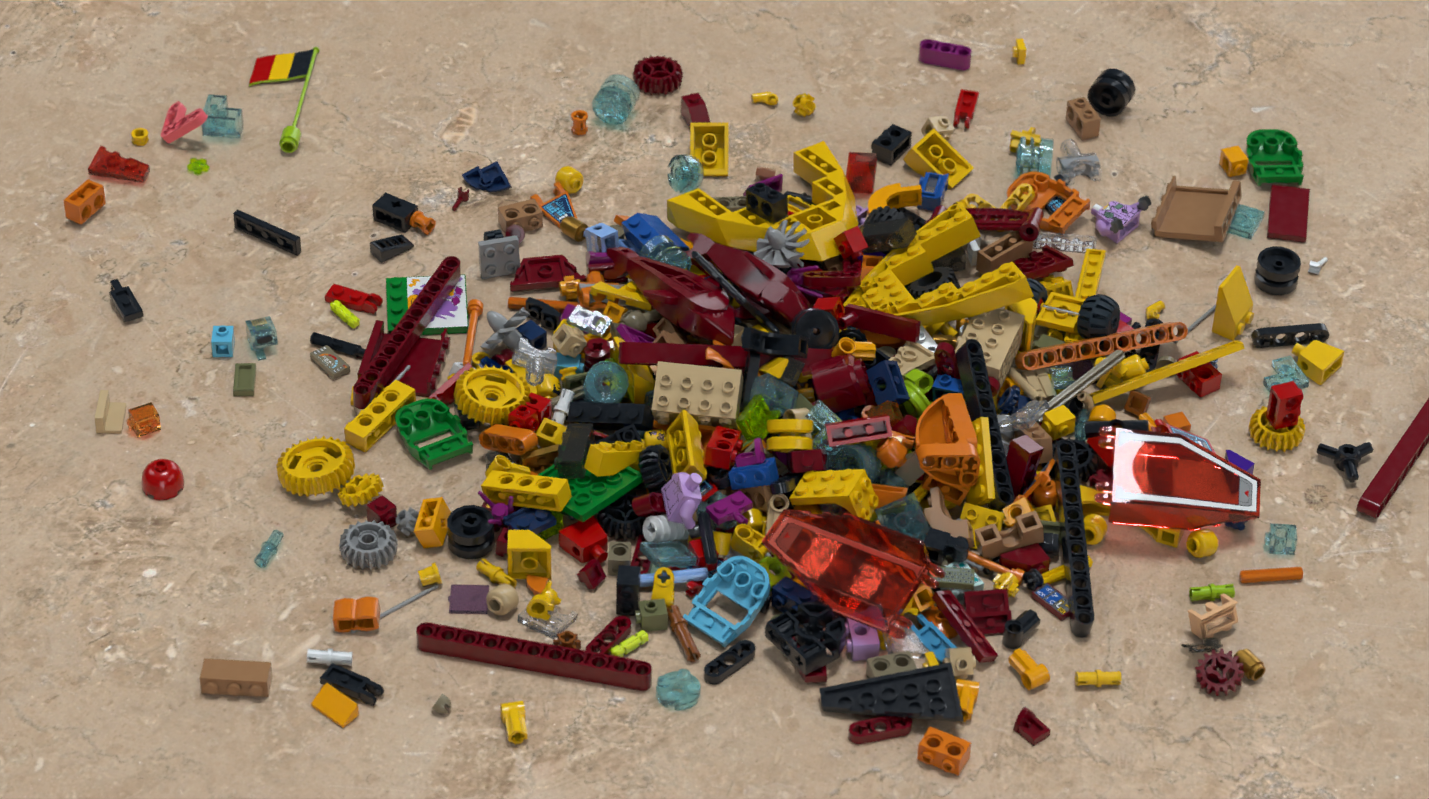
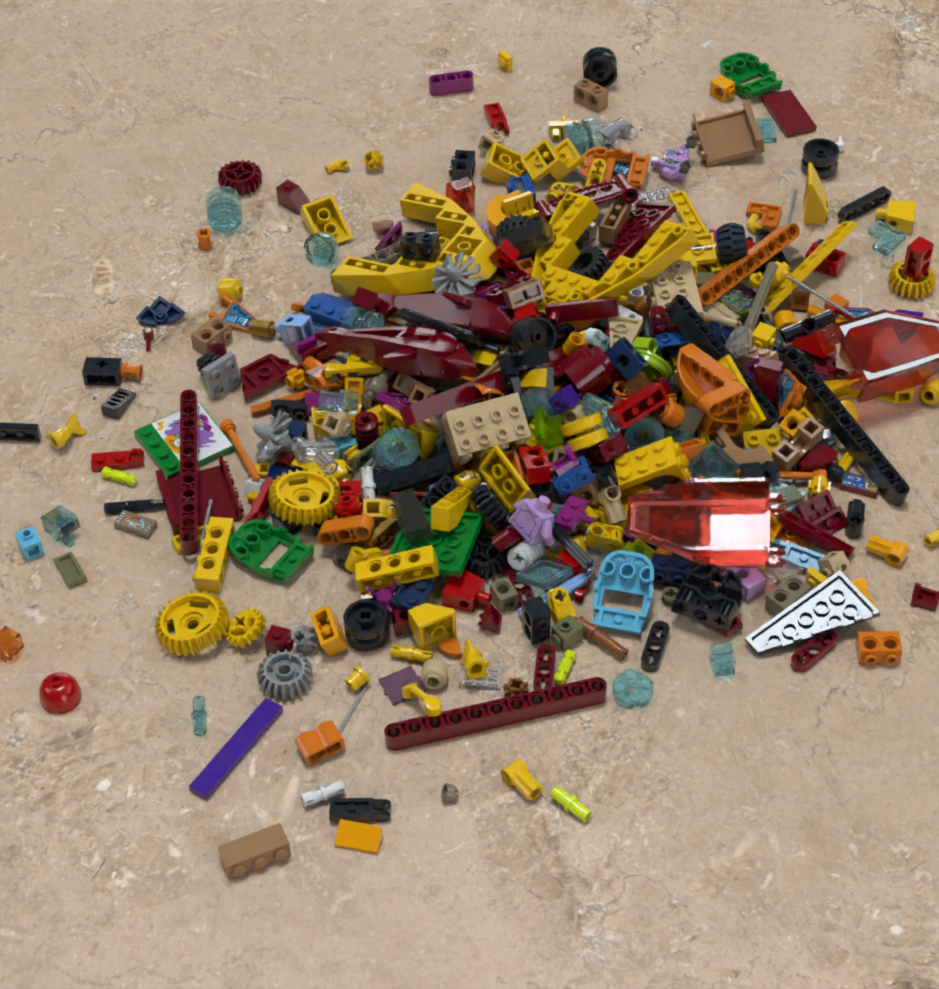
camera: 25 degrees left, 5 degrees up
(282, 589) = (235, 748): none -> dark purple tile
(316, 256) = (62, 434): none -> yellow animal
(474, 619) = (431, 703): none -> yellow bar
(543, 759) = (570, 803): none -> neon yellow pin
(680, 234) = (365, 299): none -> dark red brick
(782, 698) = (722, 659): none -> clear light blue brick
(793, 397) = (564, 399): none -> dark purple brick
(837, 285) = (523, 293): none -> medium nougat brick
(872, 352) = (597, 337): none -> light aqua beam
(912, 203) = (519, 204): none -> yellow bracket
(984, 169) = (549, 159): none -> yellow bracket
(1153, 403) = (822, 297): none -> light grey piece
(1178, 306) = (768, 213): none -> orange tile

